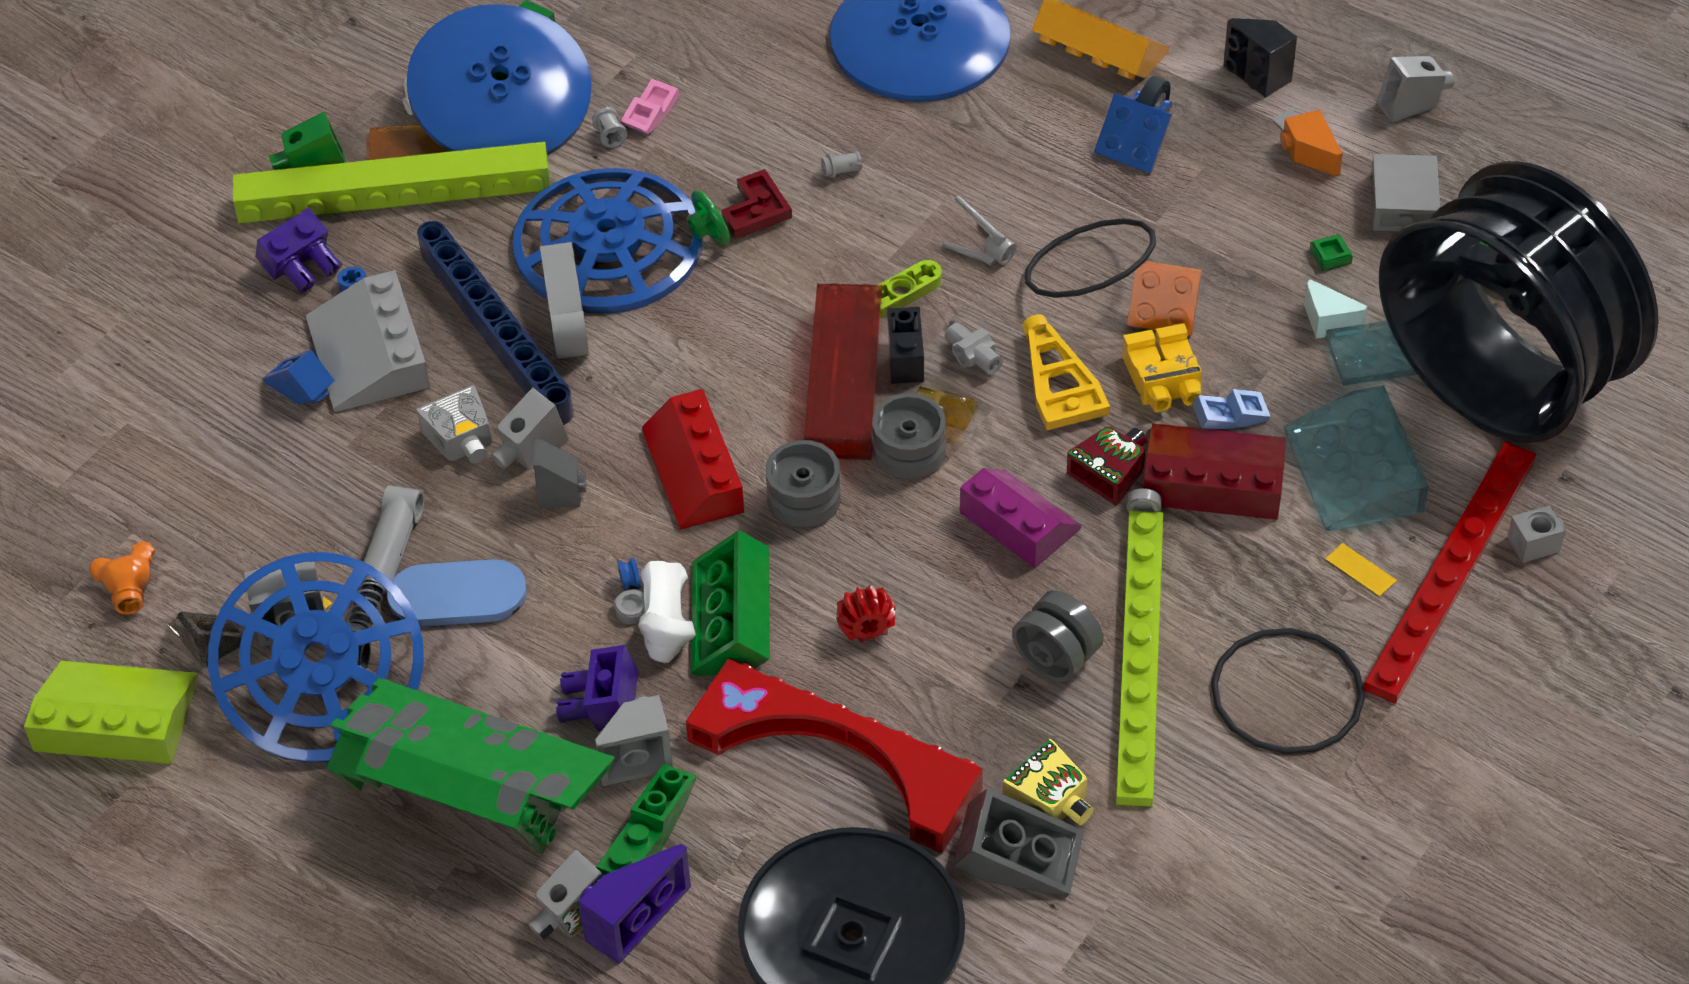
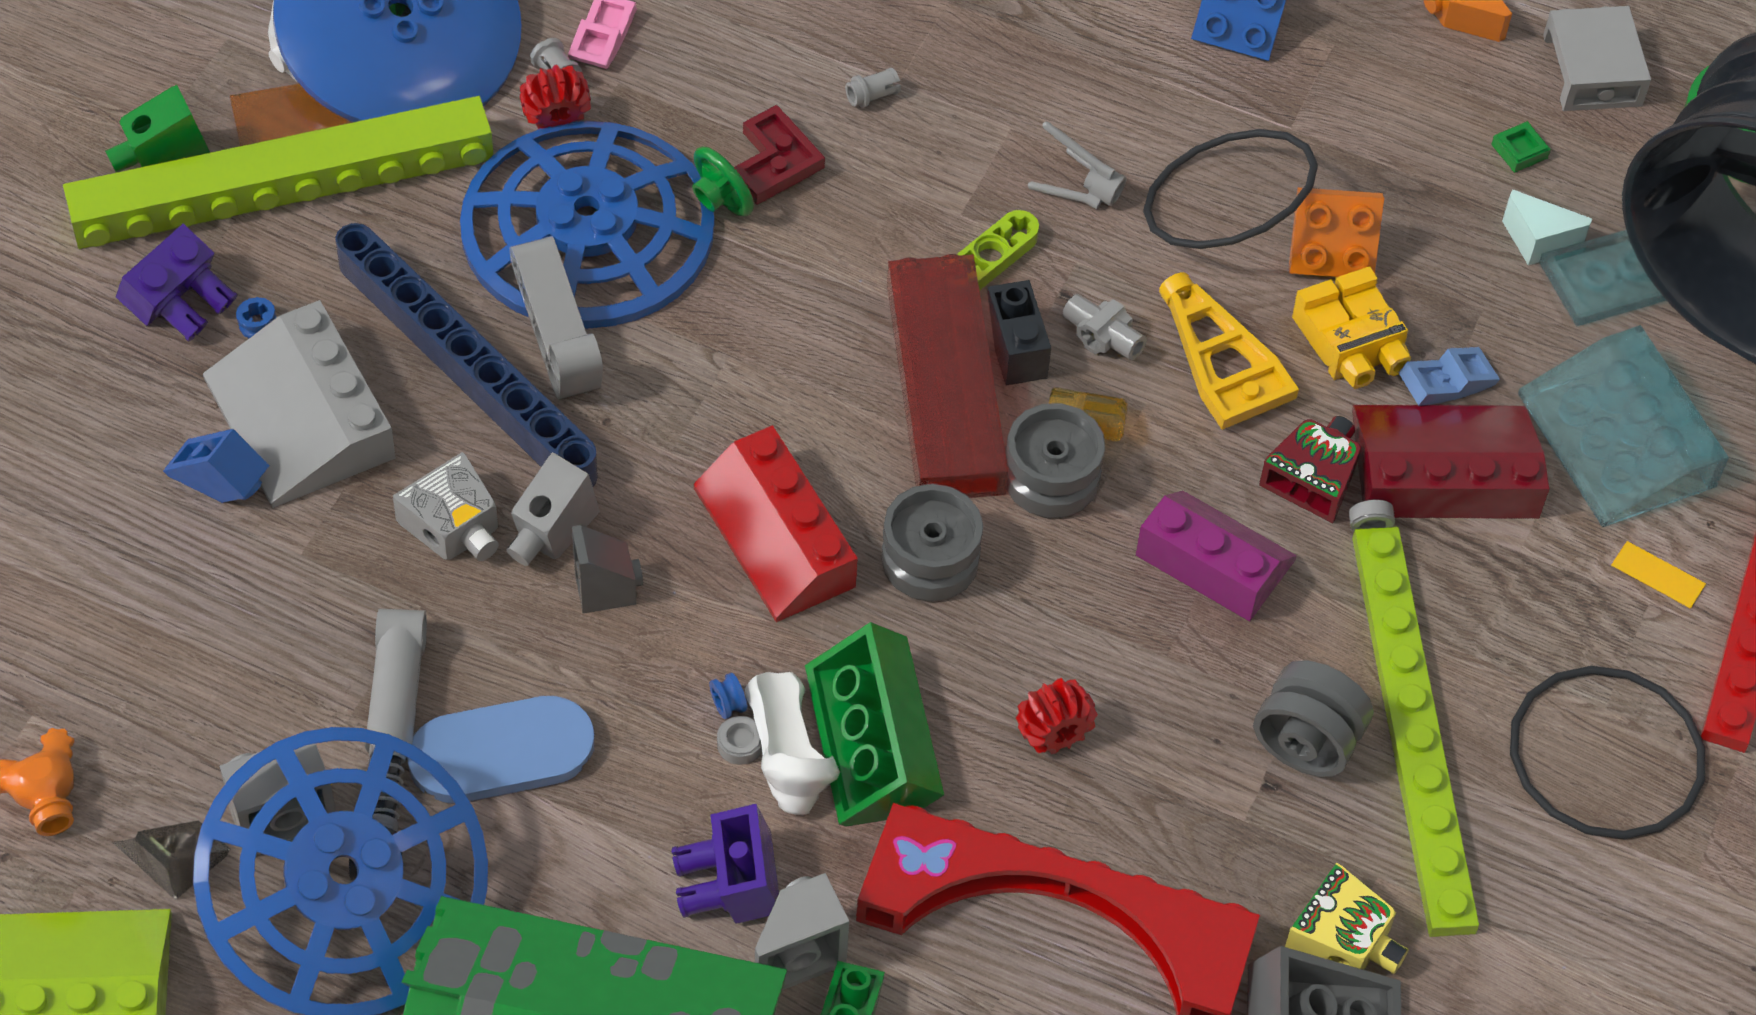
camera: 15 degrees left, 5 degrees up
(601, 148) = (555, 97): none -> red gear

